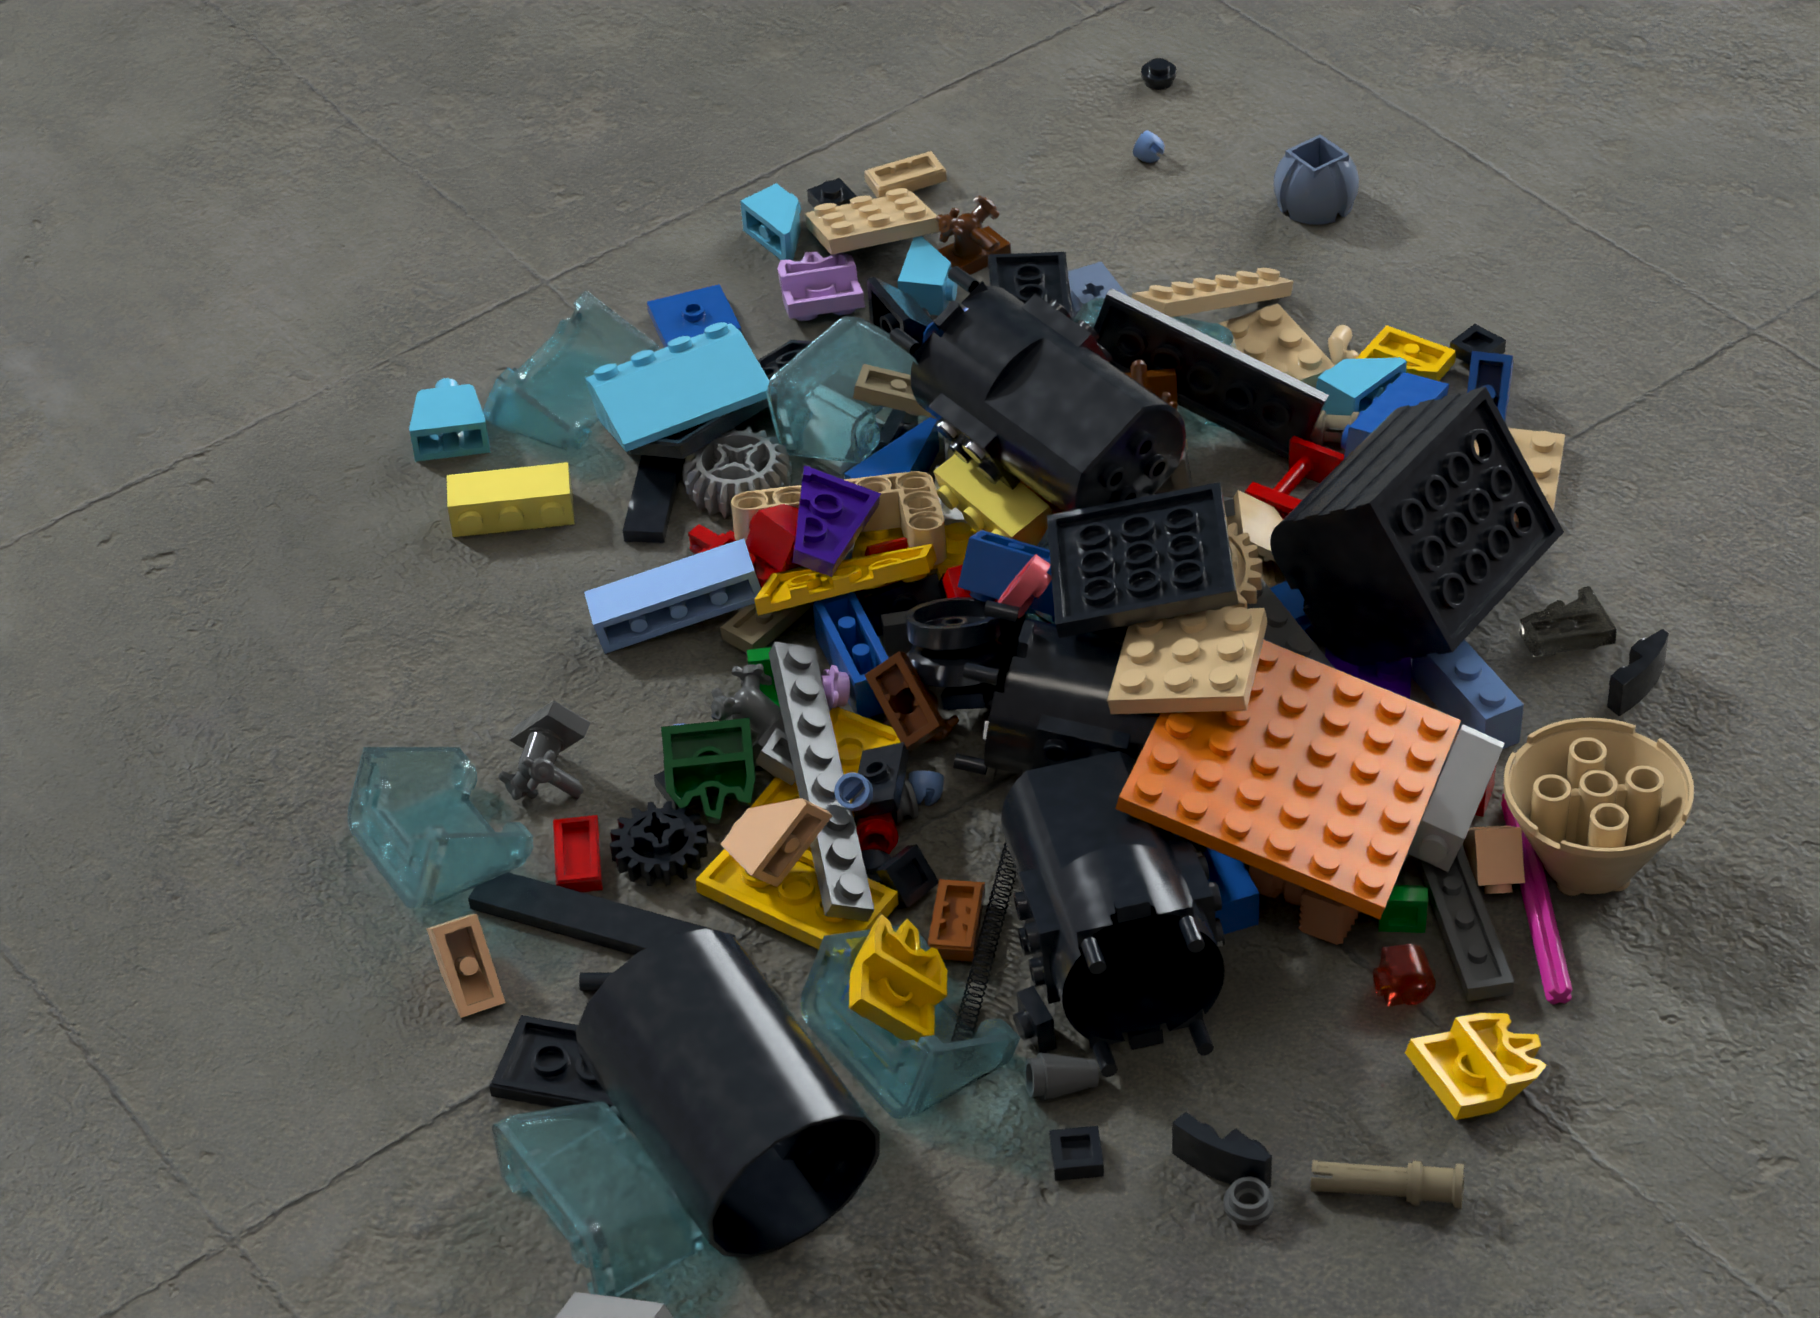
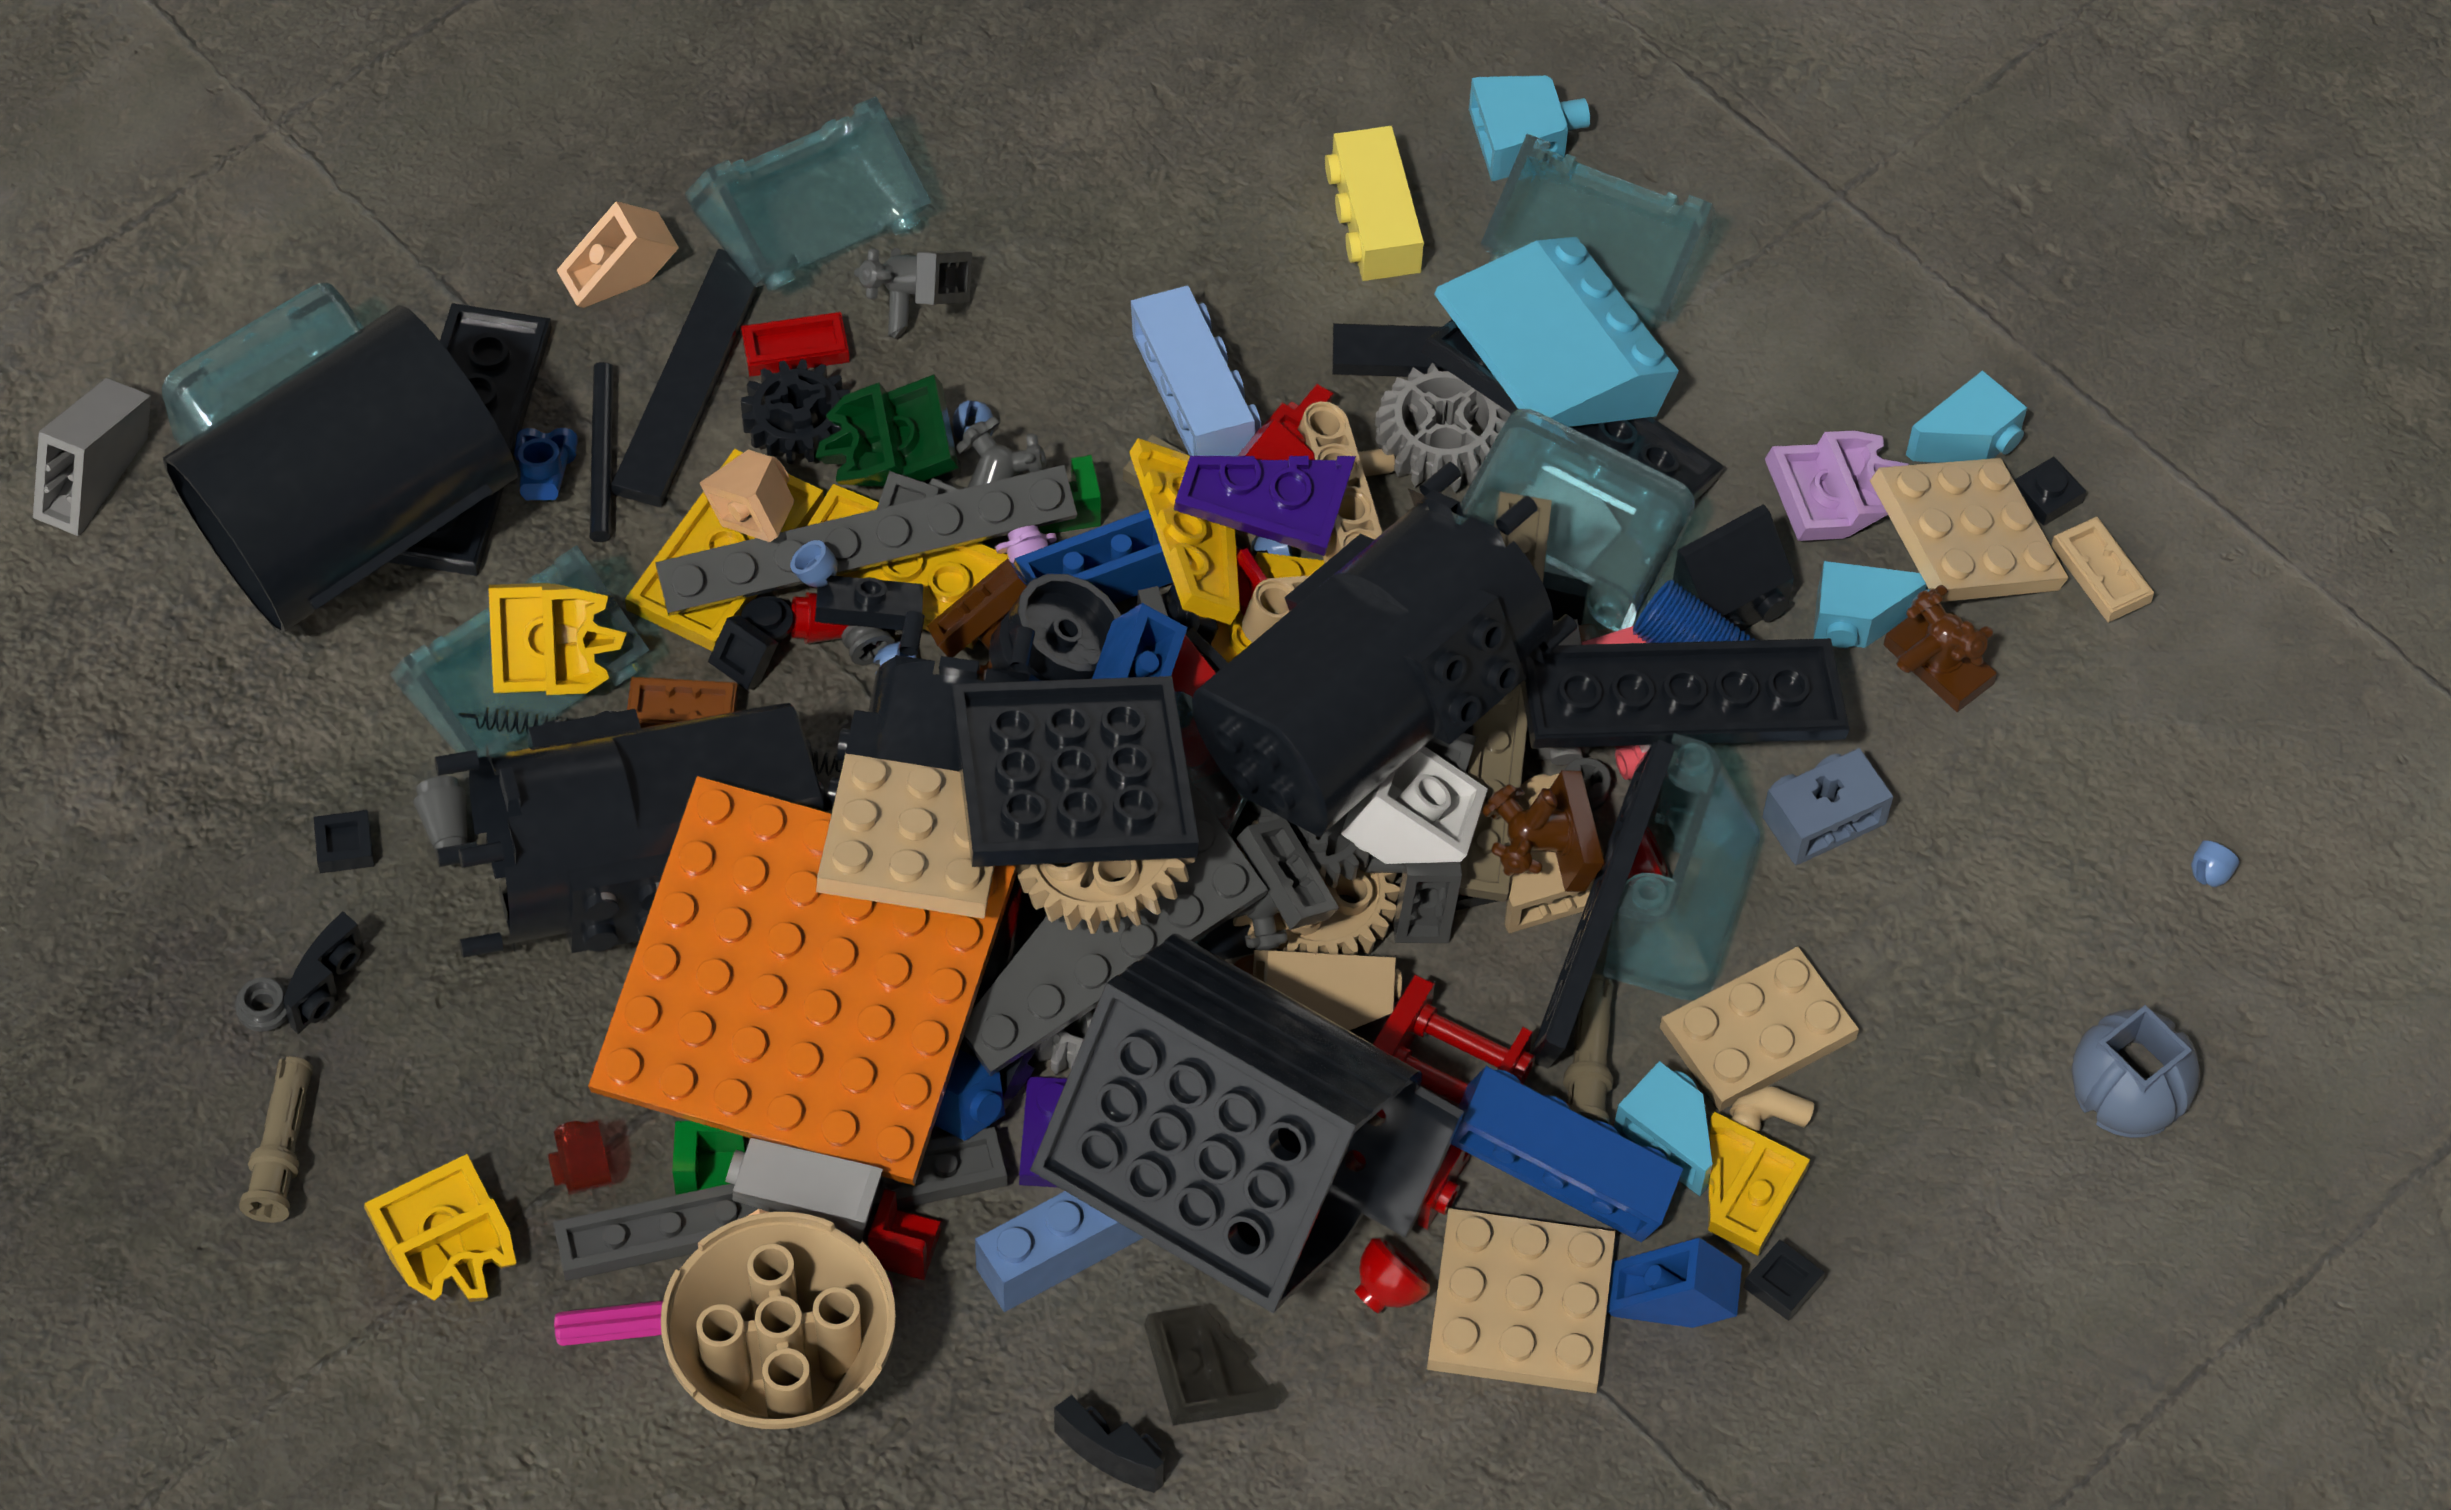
camera: 80 degrees right, 15 degrees up
(690, 313) = (1762, 359): blue plate -> none
(1027, 584) = (1058, 666): coral plate -> none
(1158, 73) = (2409, 874): black plate -> none
(1216, 294) = (1797, 918): tan plate -> none

